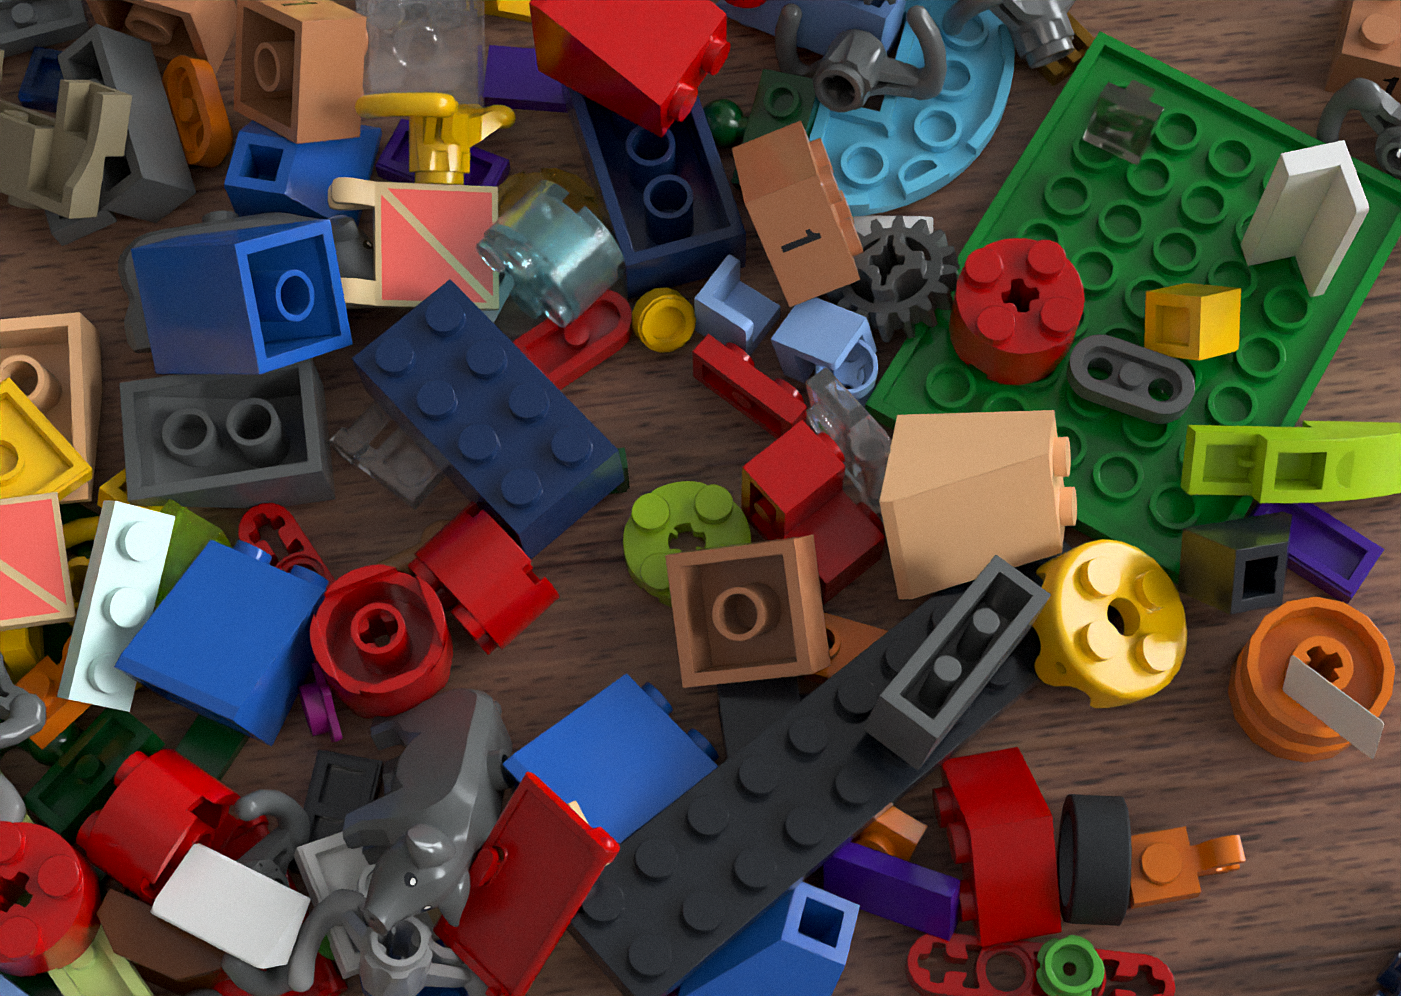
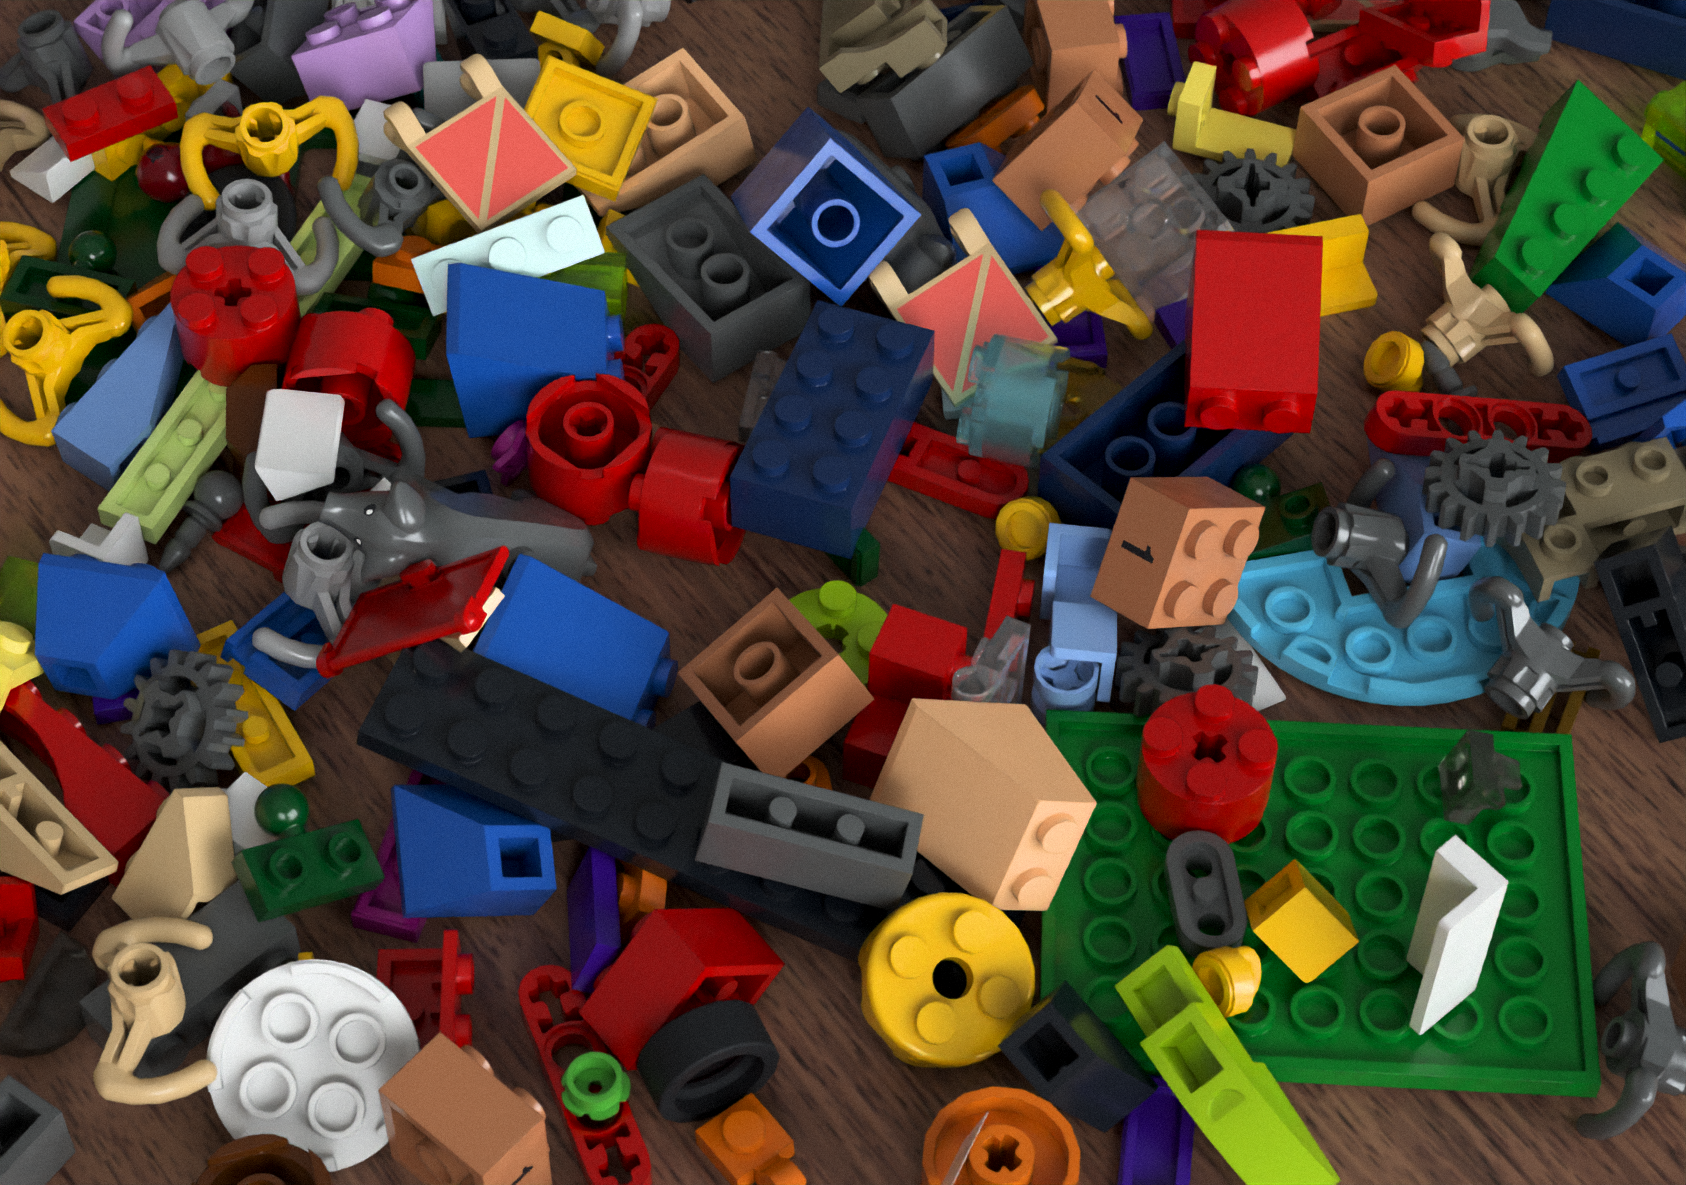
camera: 60 degrees right, 15 degrees down
(1223, 402) = (1230, 977): none -> yellow tile

